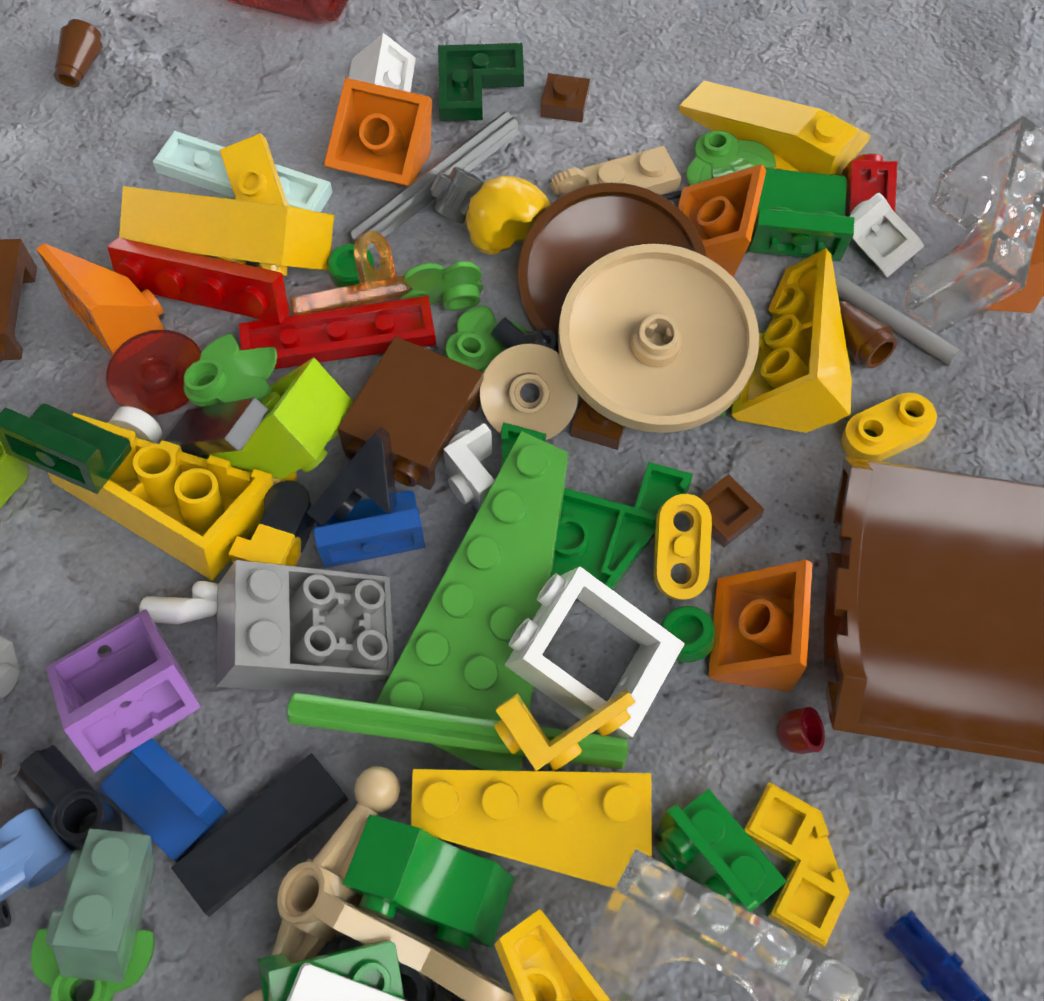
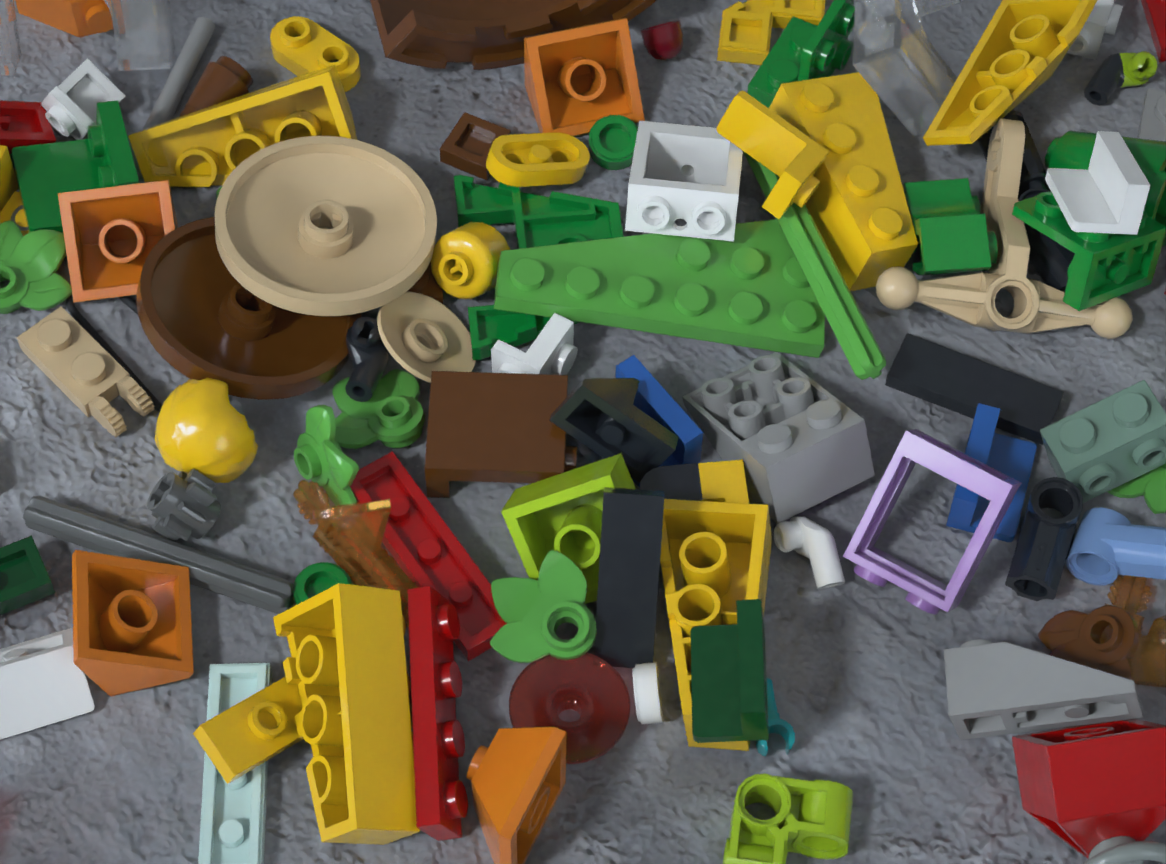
camera: 115 degrees left, 5 degrees down
(60, 510) = (775, 724): none -> teal hand
(592, 448) = (468, 260): none -> yellow head

